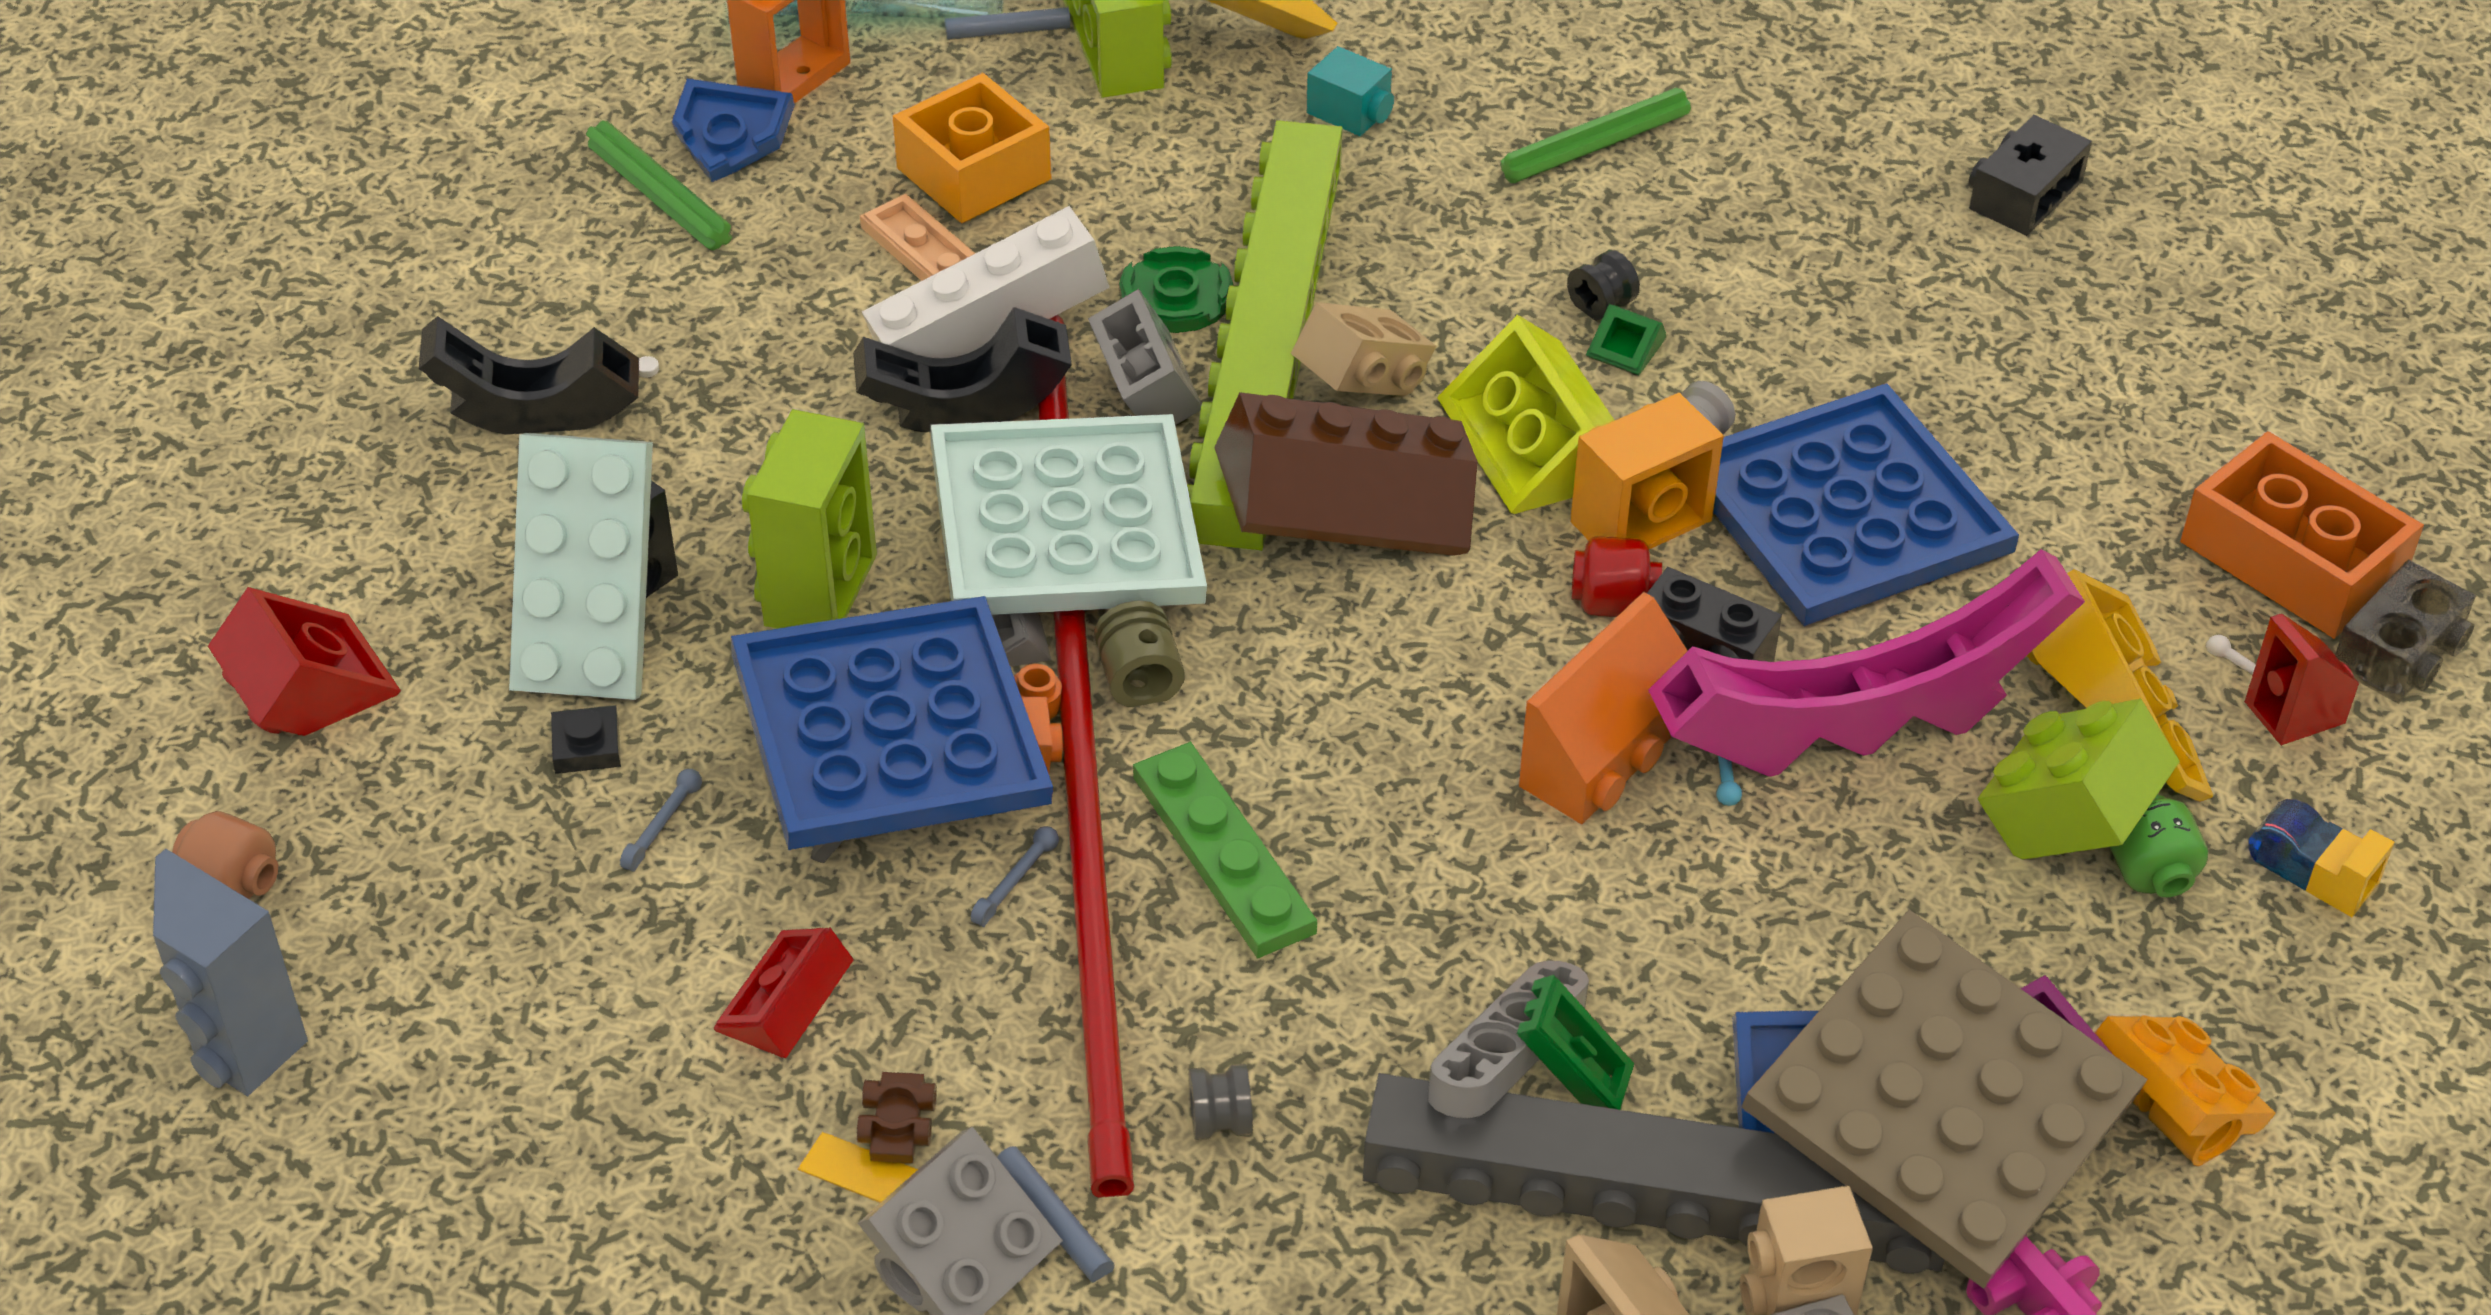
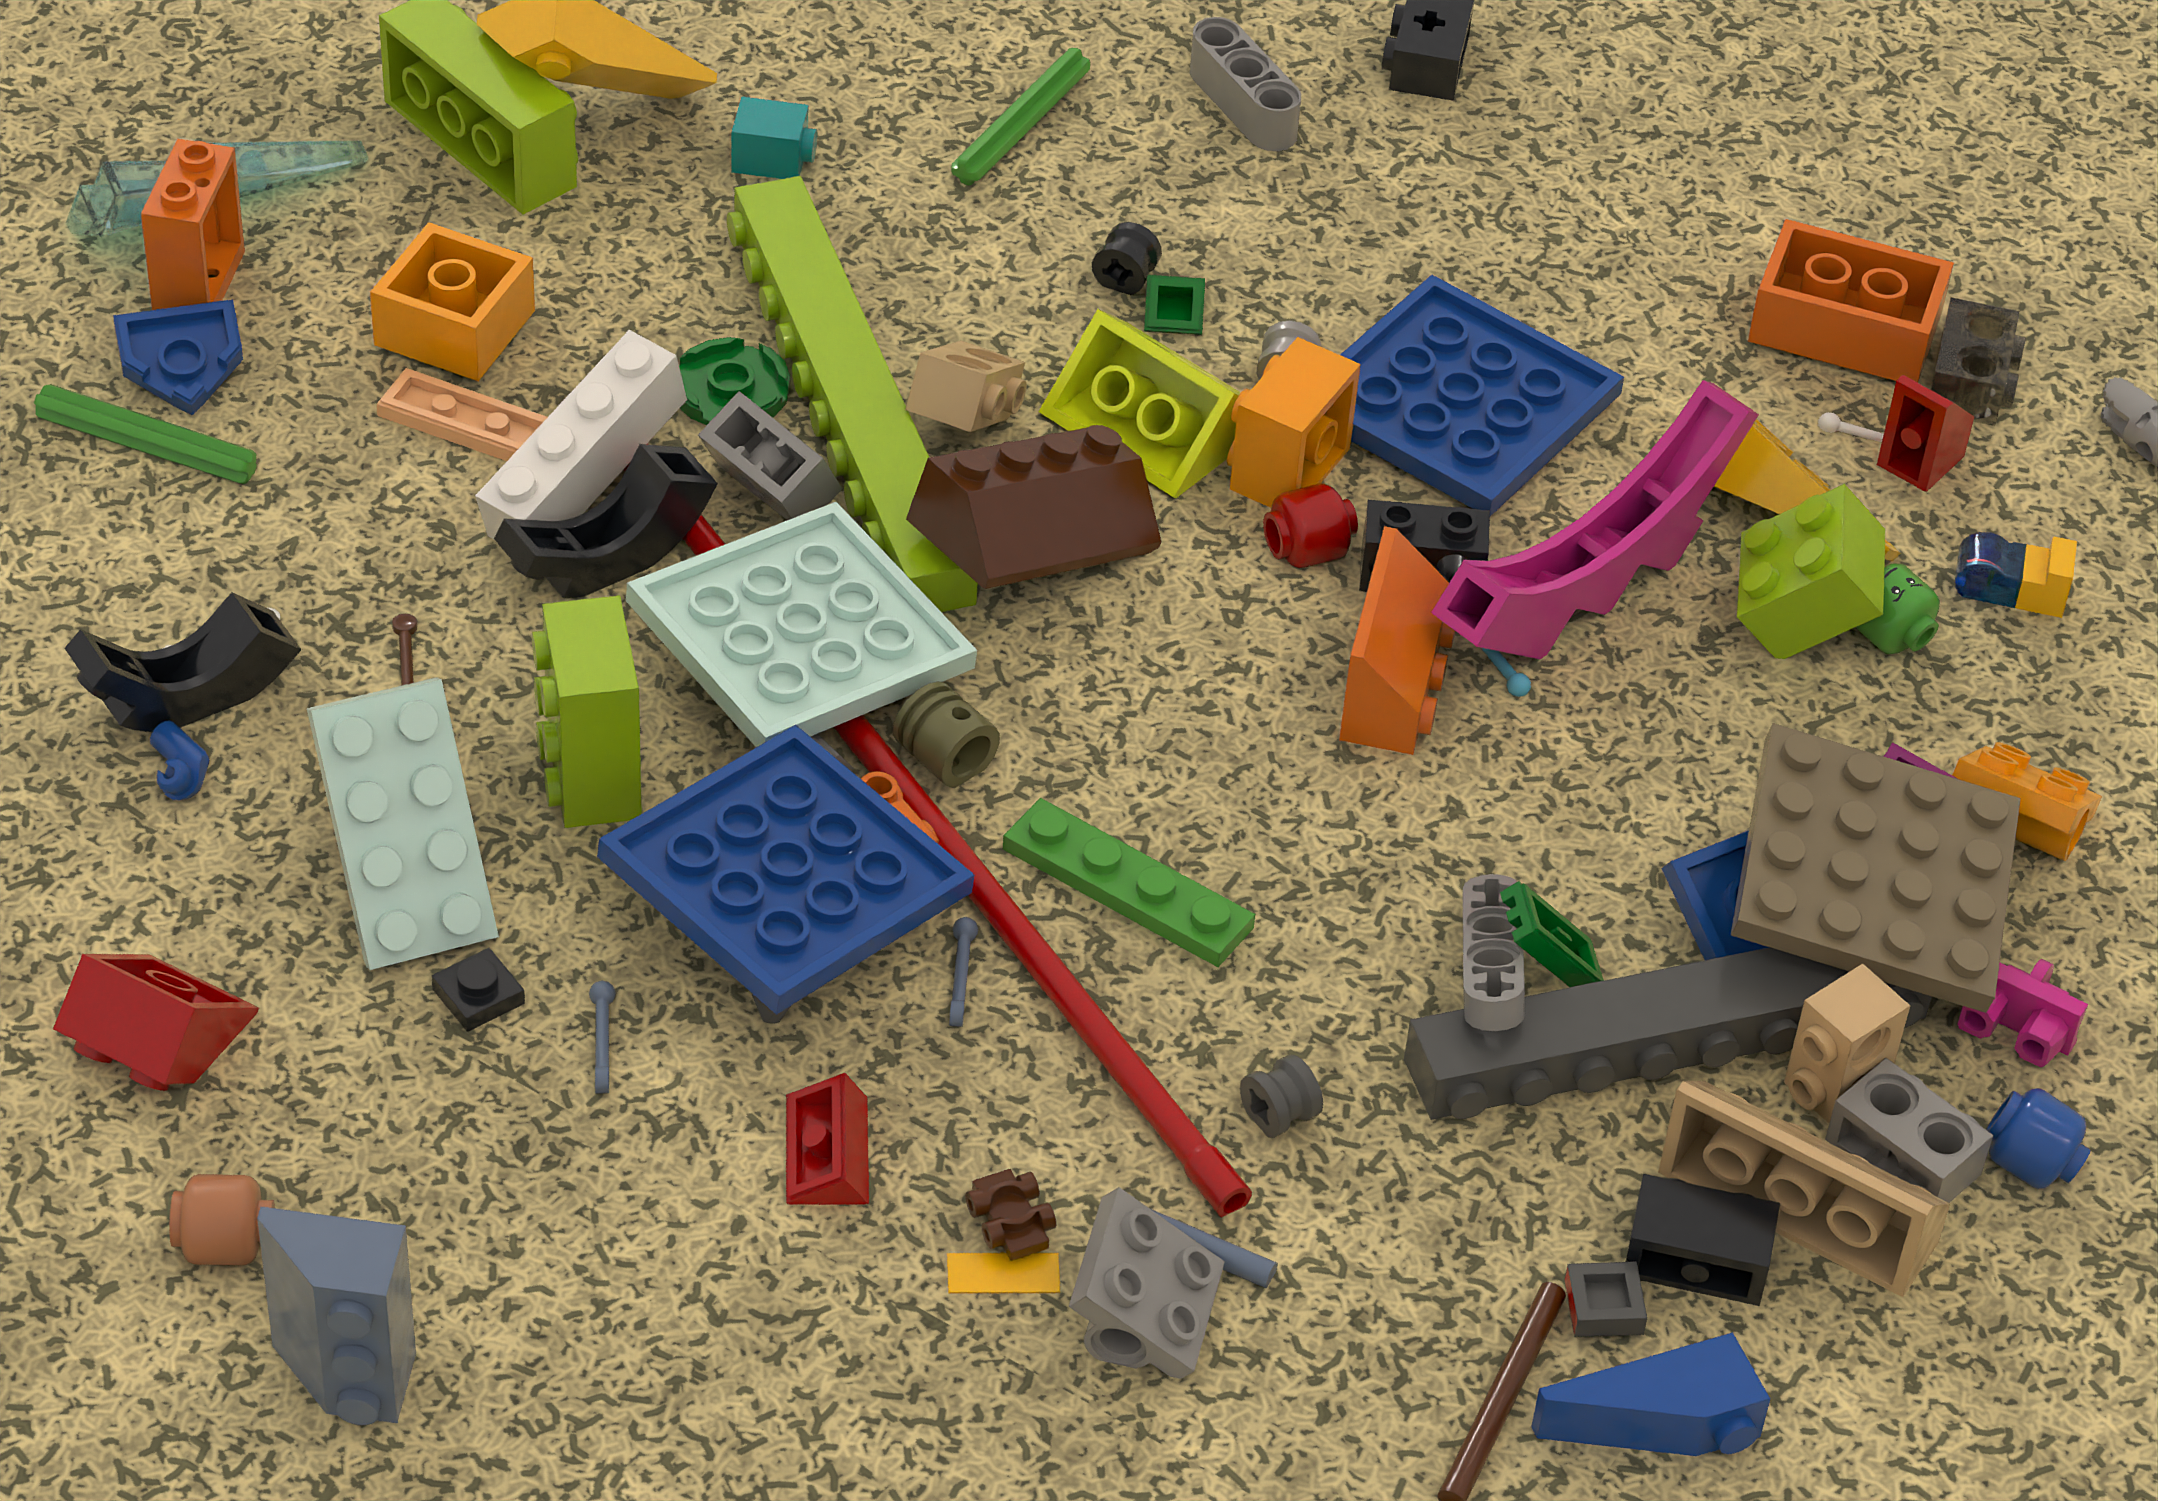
camera: 30 degrees left, 0 degrees up
(490, 467) = (185, 761): none -> blue arm
(711, 470) = (405, 626): none -> reddish brown hinge
(1007, 23) = (378, 165): sand blue piece -> none
(1821, 163) = (1245, 84): none -> light grey beam

